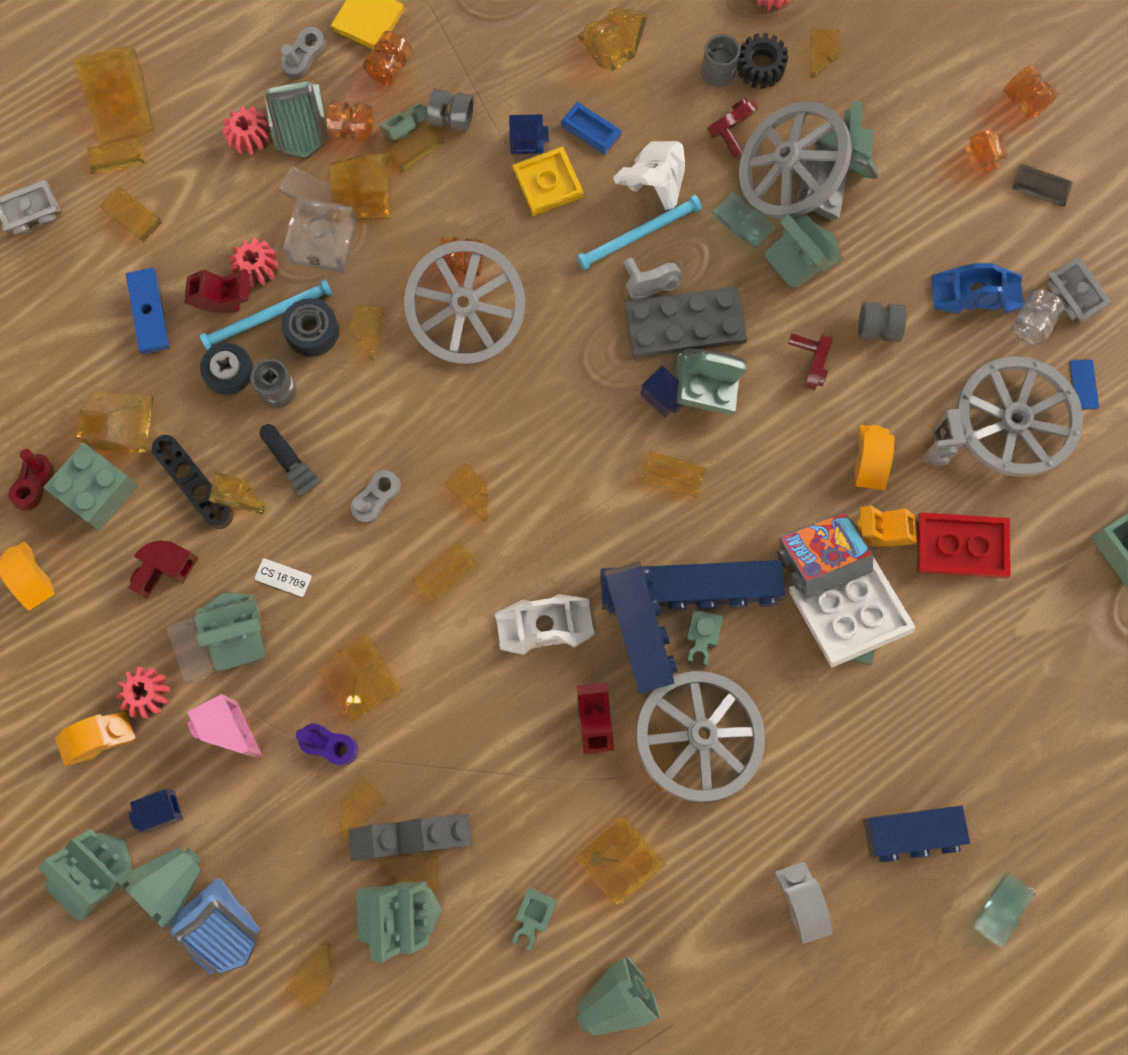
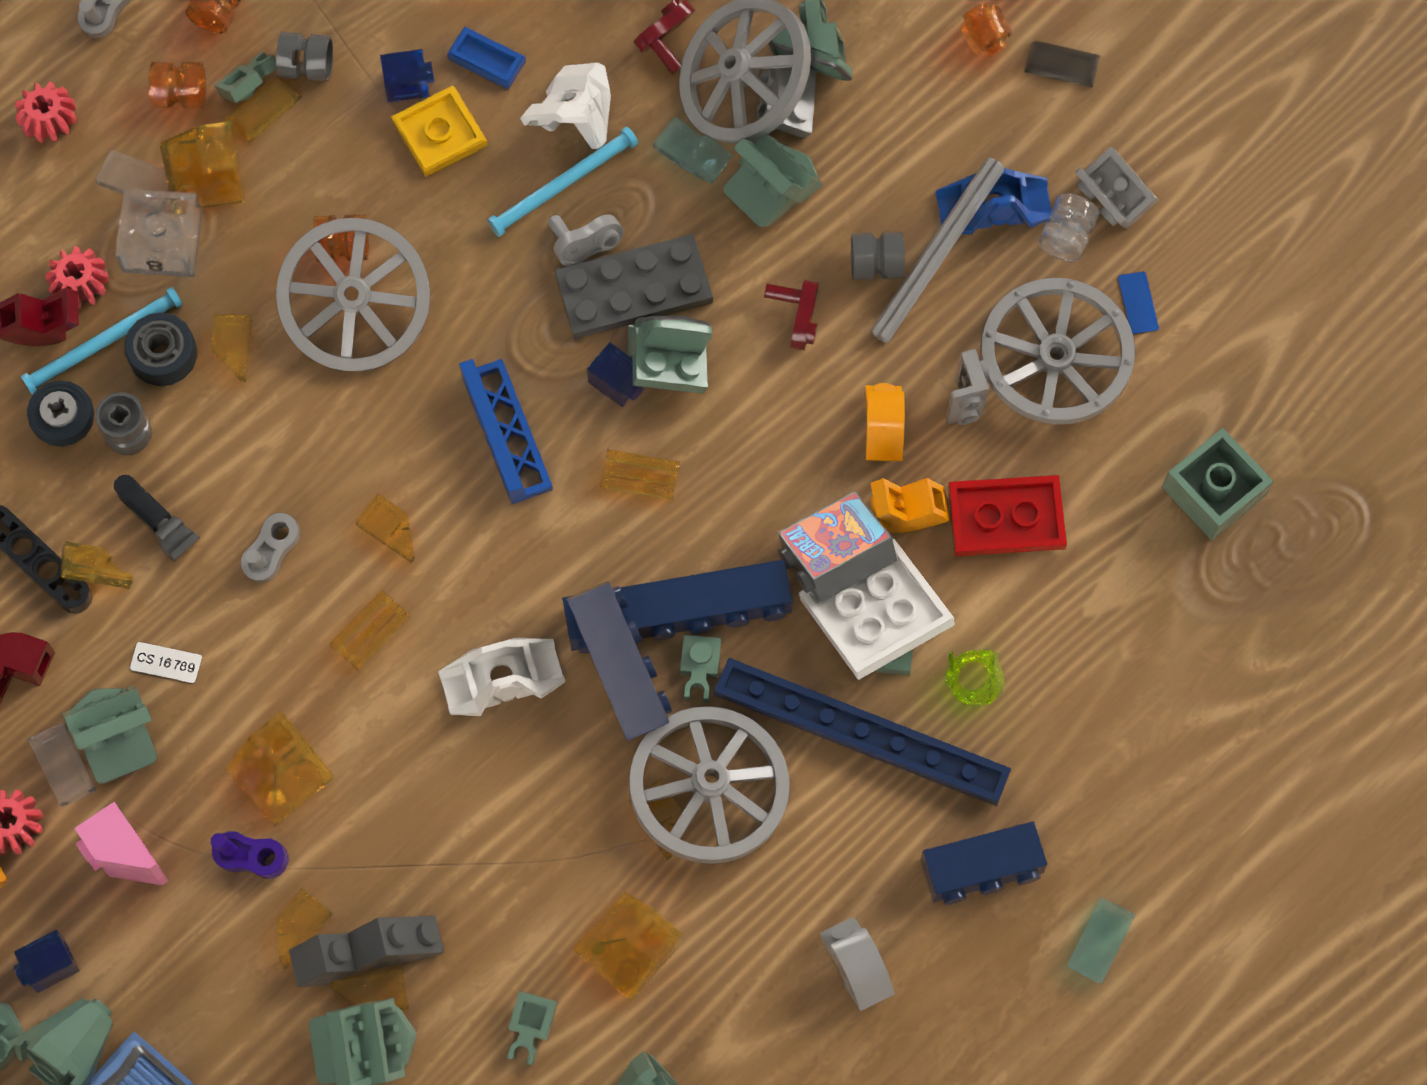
camera: 10 degrees left, 5 degrees down
(297, 118) = (109, 91): sand green piece -> none
(561, 424) = (492, 430): none -> blue fence
(595, 717) = (576, 777): dark red brick -> none
(830, 709) = (862, 731): none -> dark blue plate
(929, 691) = (993, 686): none -> clear neon green piece
(932, 322) = (937, 250): none -> light grey axle

